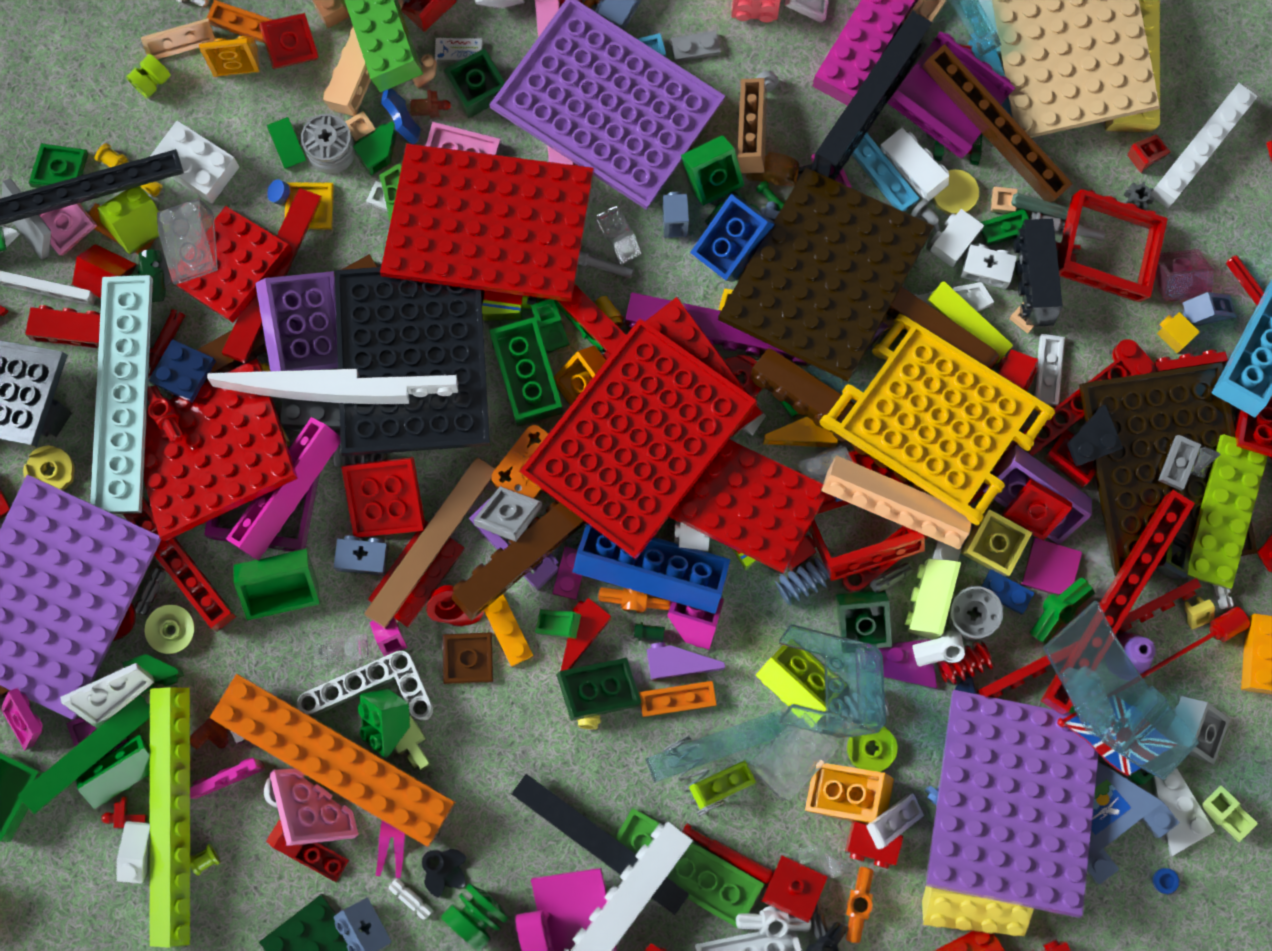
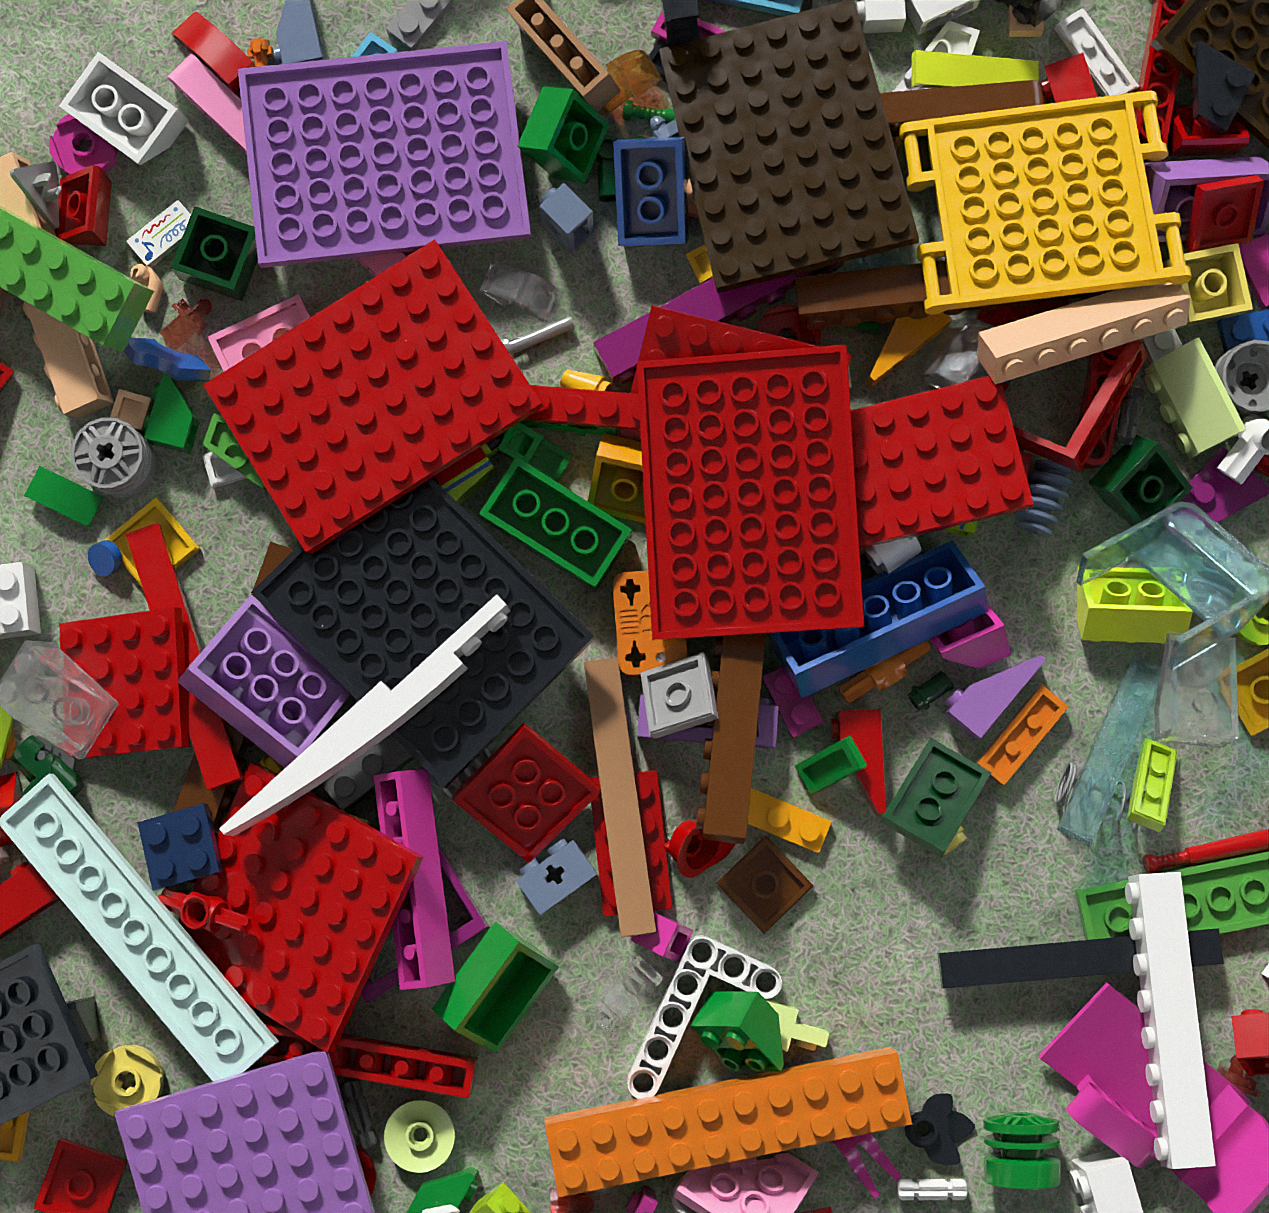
camera: 40 degrees left, 5 degrees up
(166, 335) = (126, 829): red pin -> none

